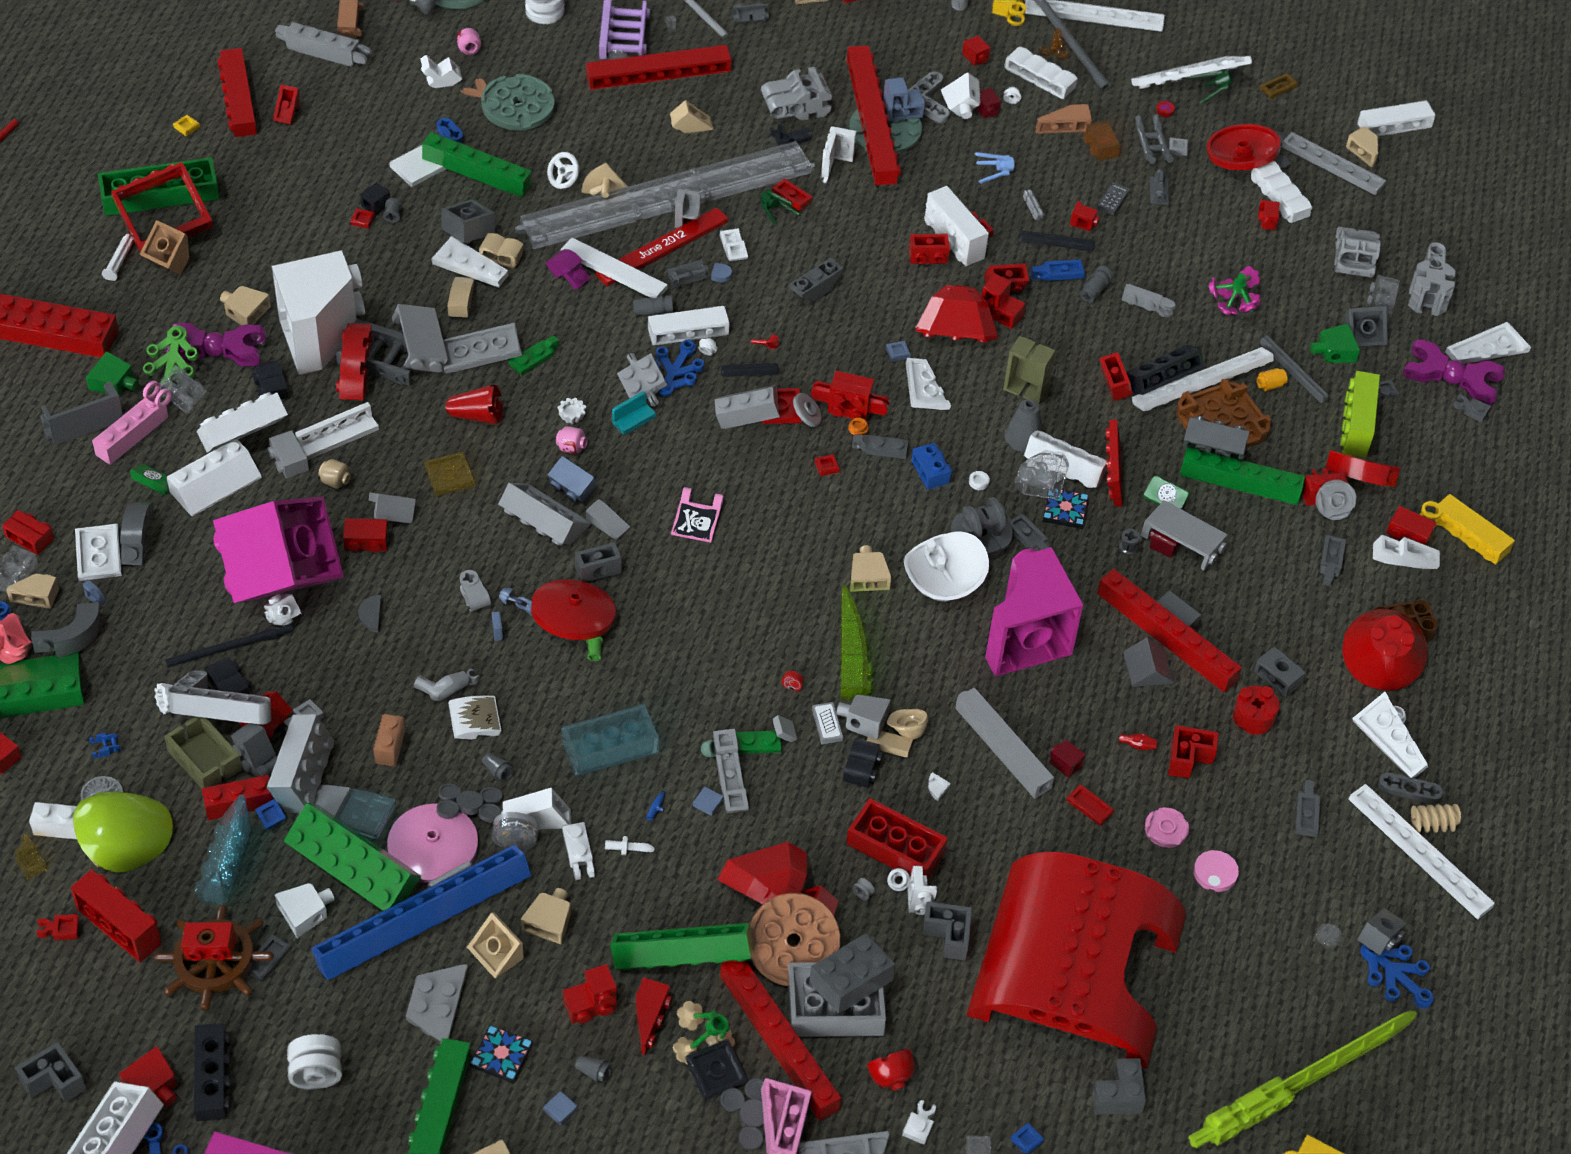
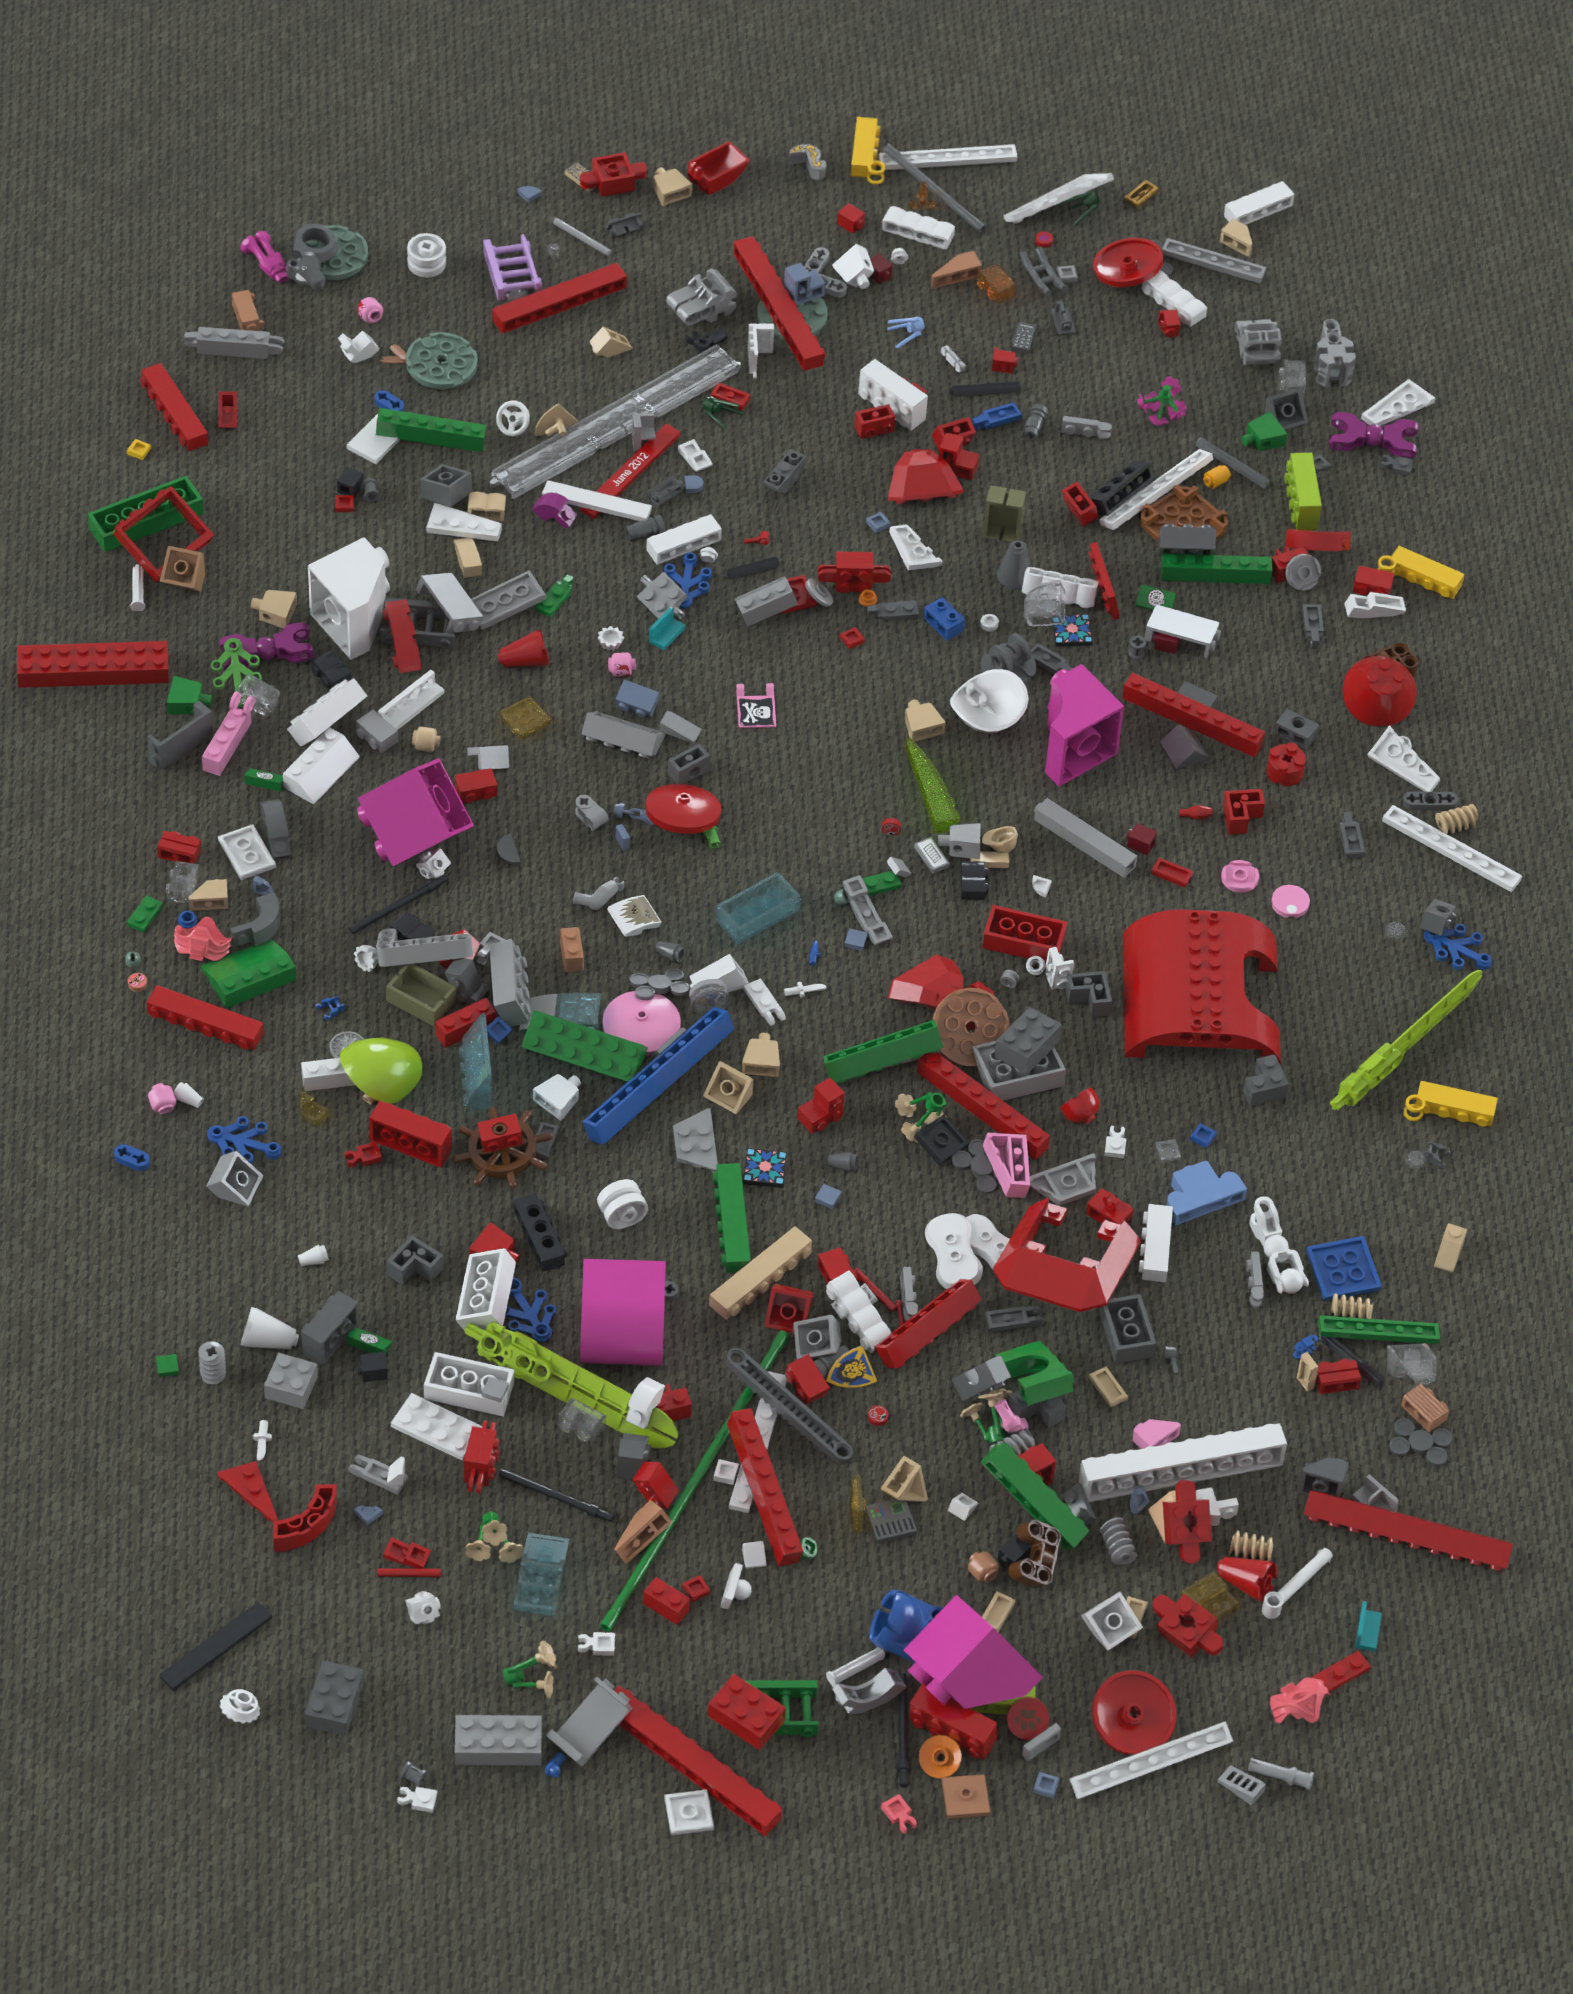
camera: 15 degrees left, 0 degrees up
(649, 1006) = (870, 1108): red slope -> none

